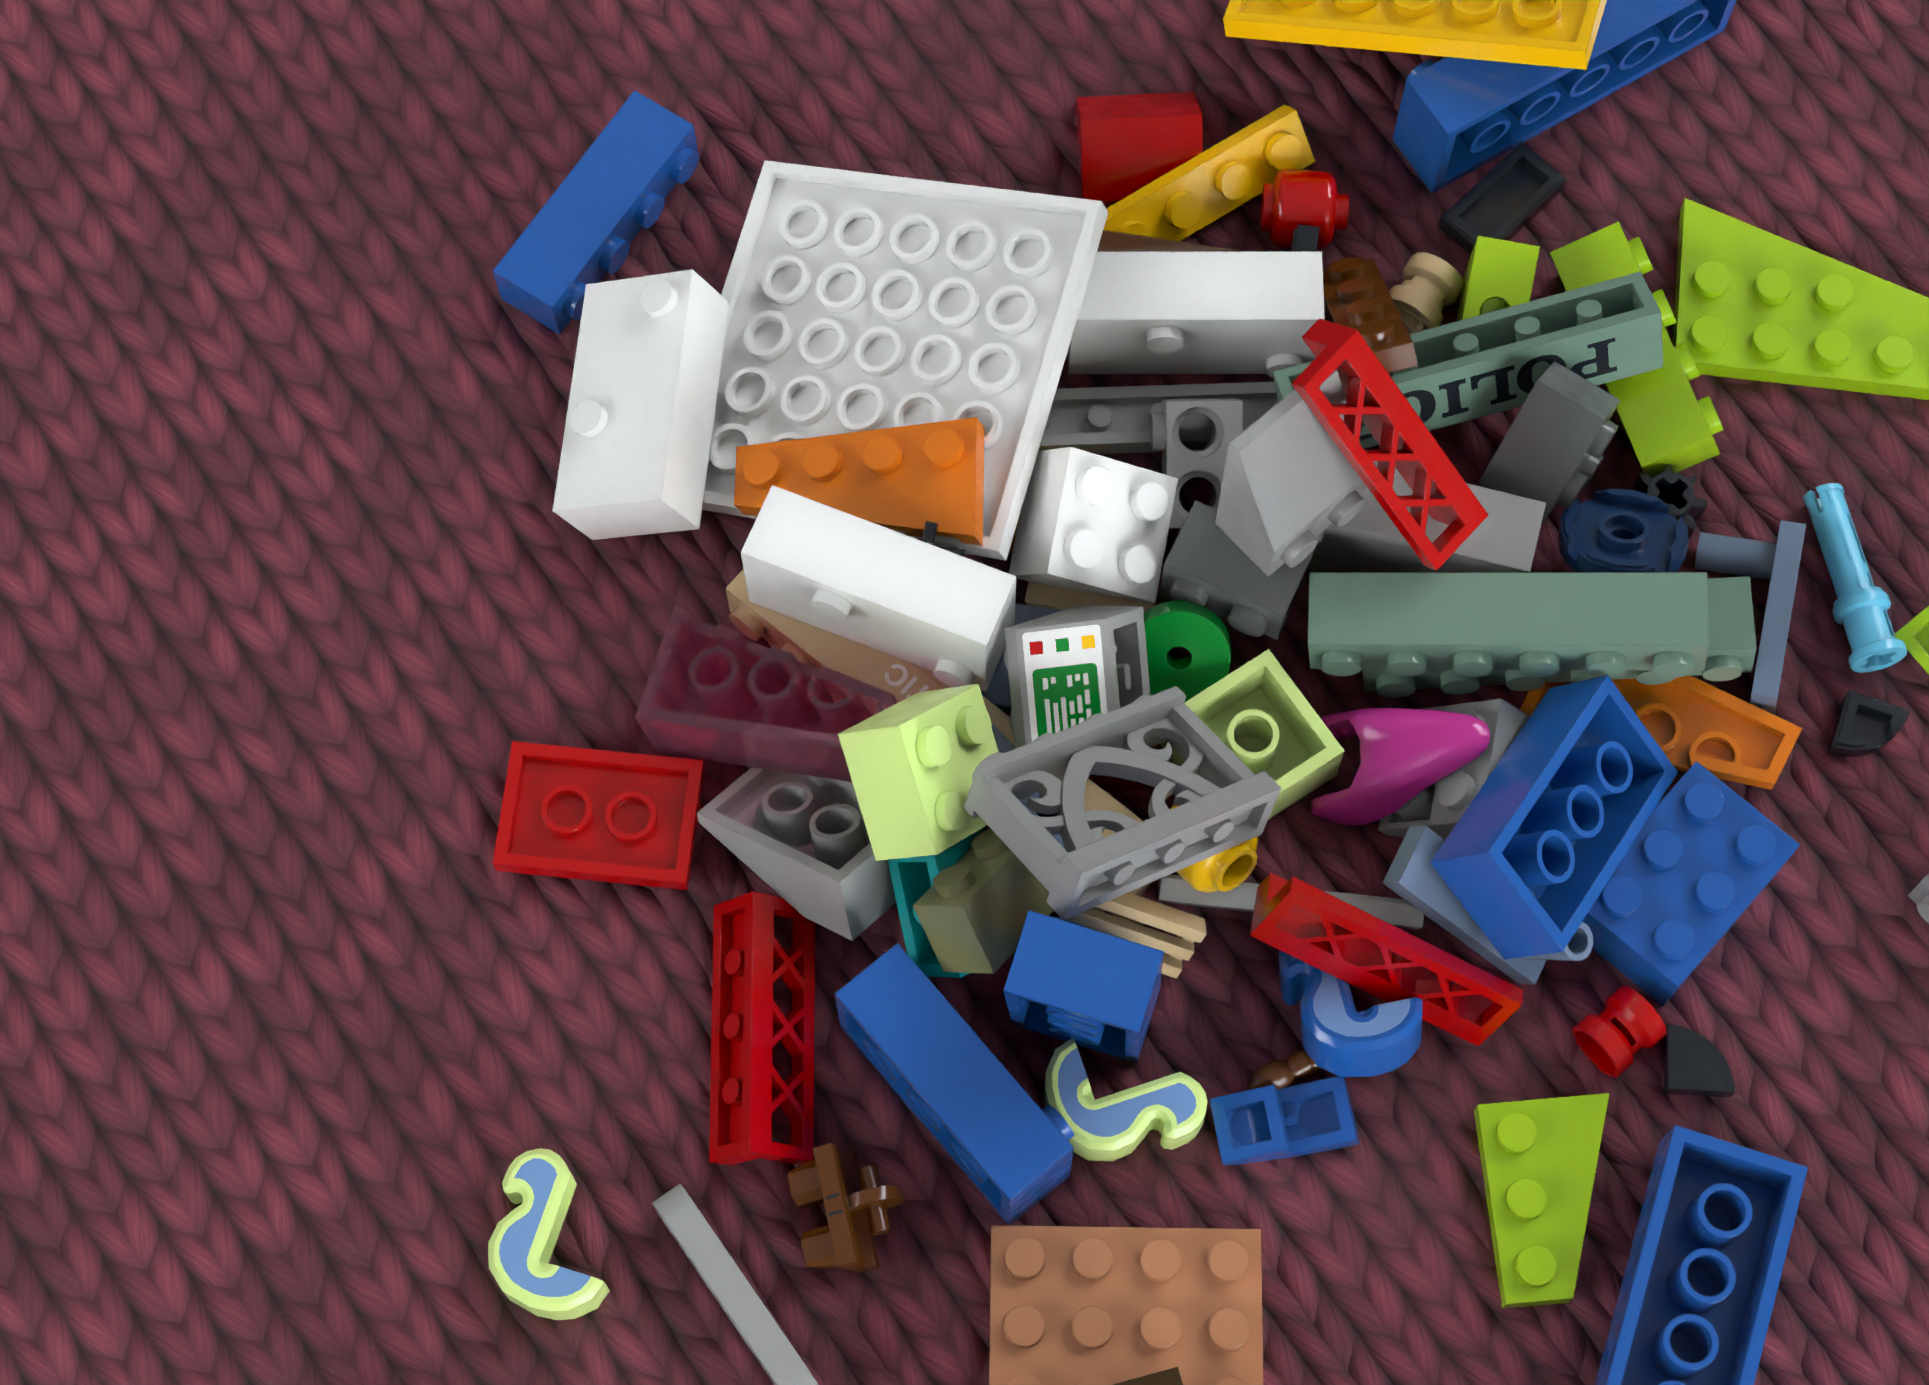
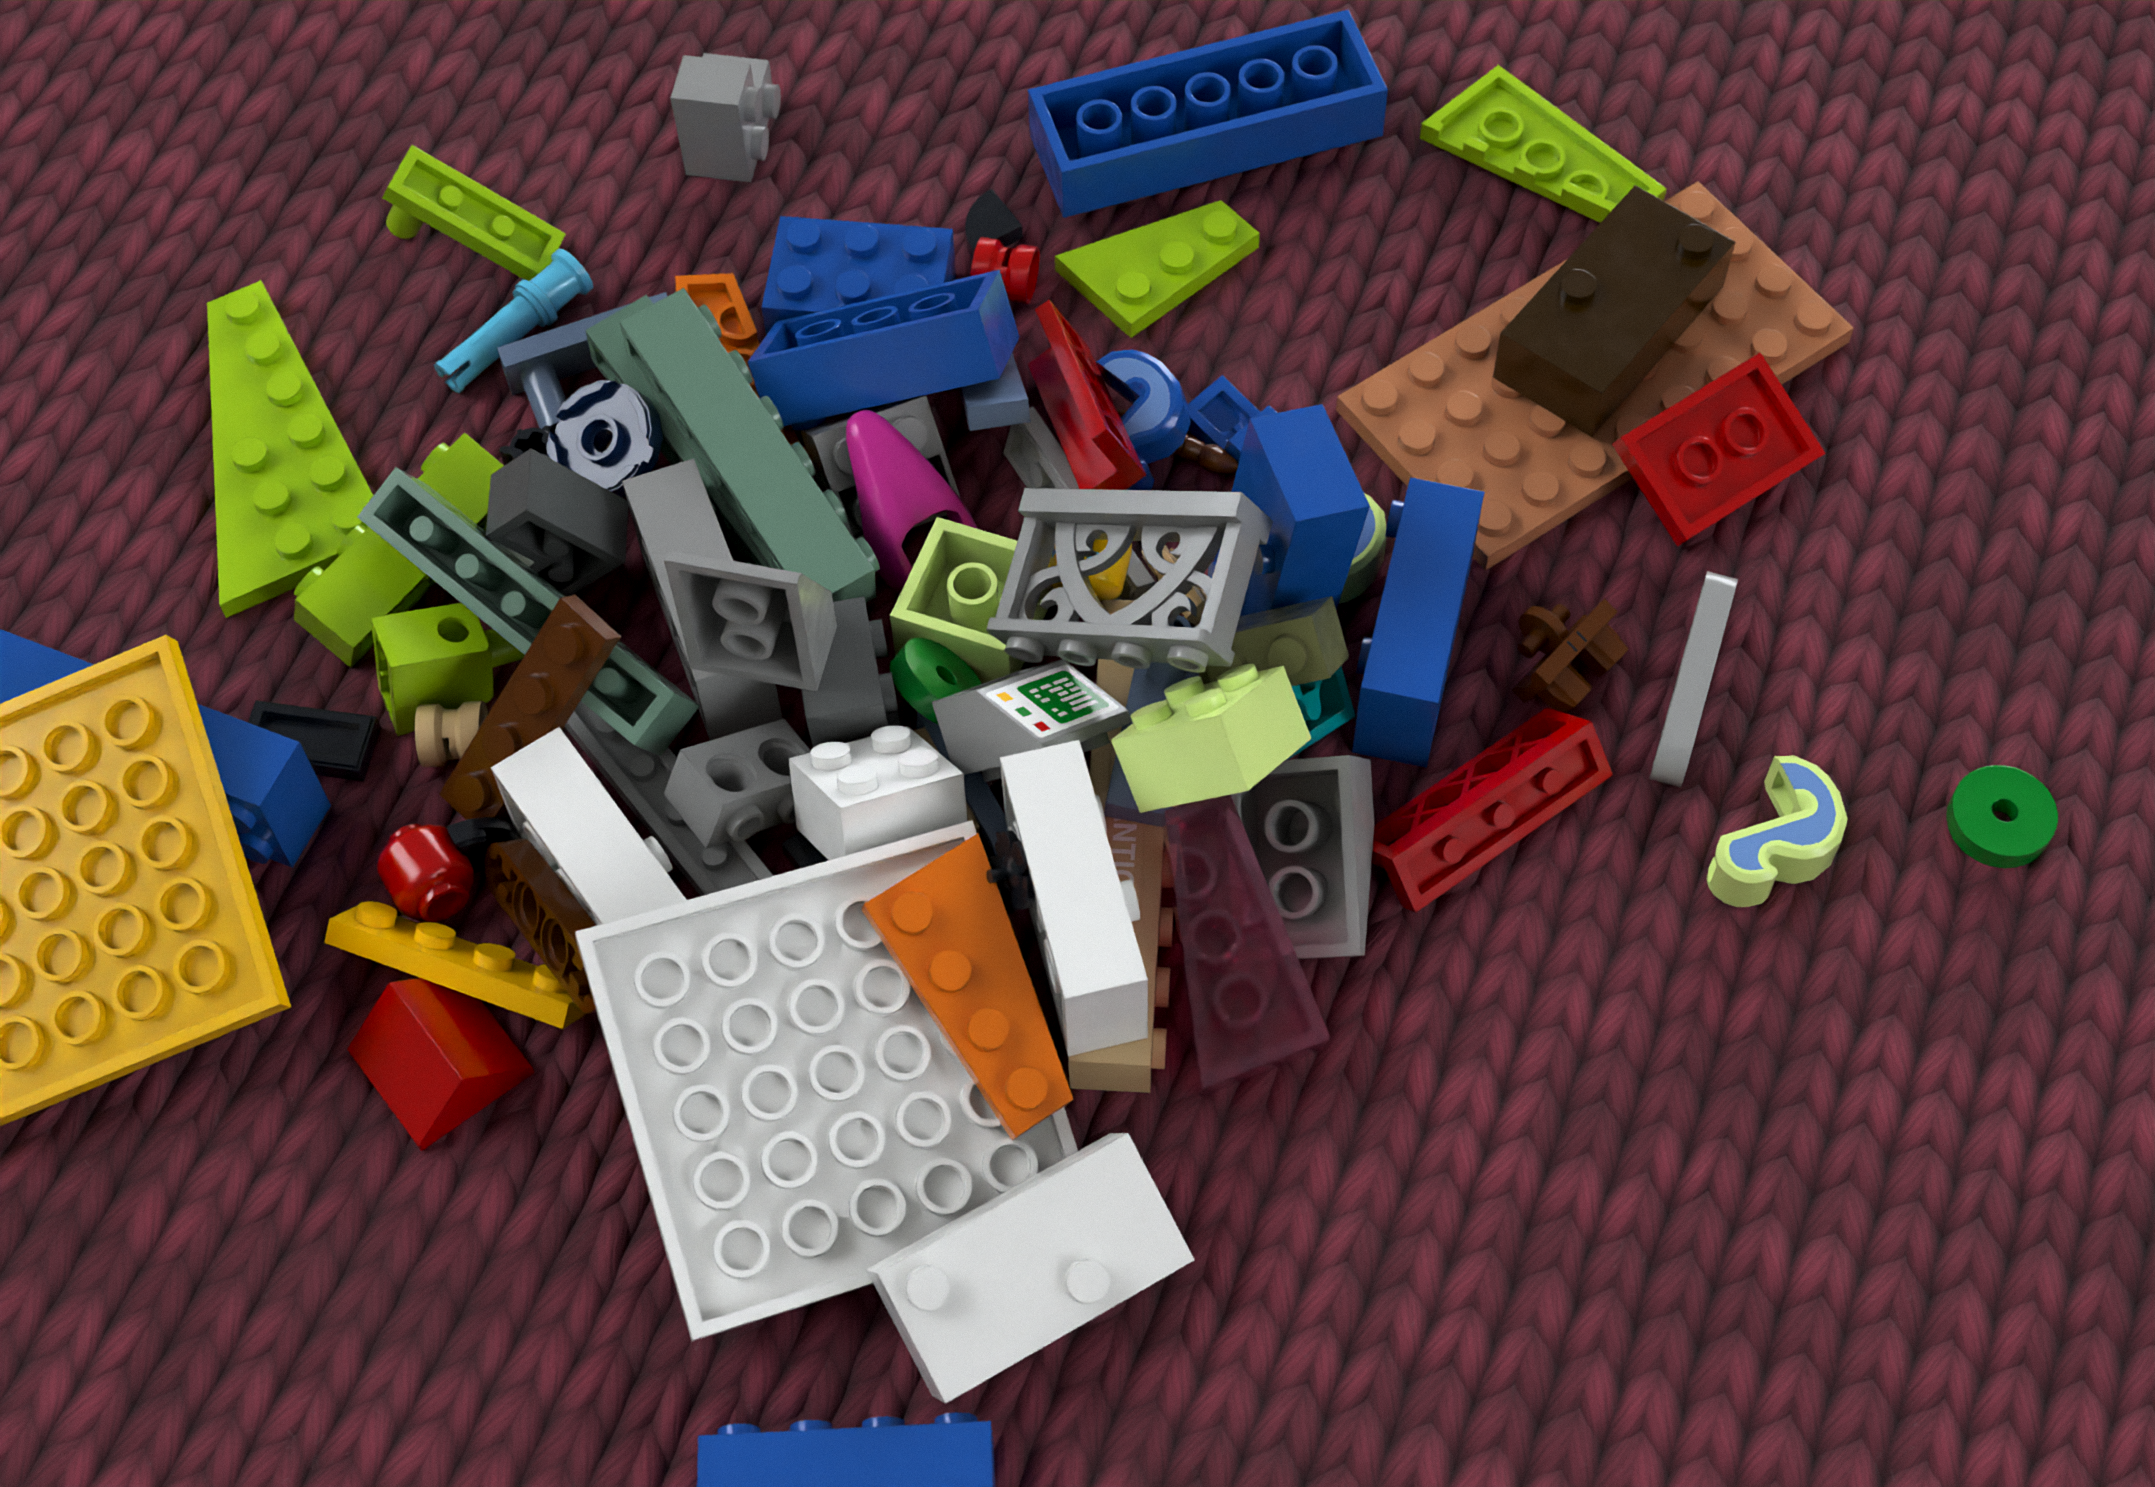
camera: 125 degrees left, 10 degrees down
(599, 815) = (1421, 1048): red plate -> none
(1402, 439) = (683, 523): red fence -> none
(1865, 725) = (634, 264): black tile -> none

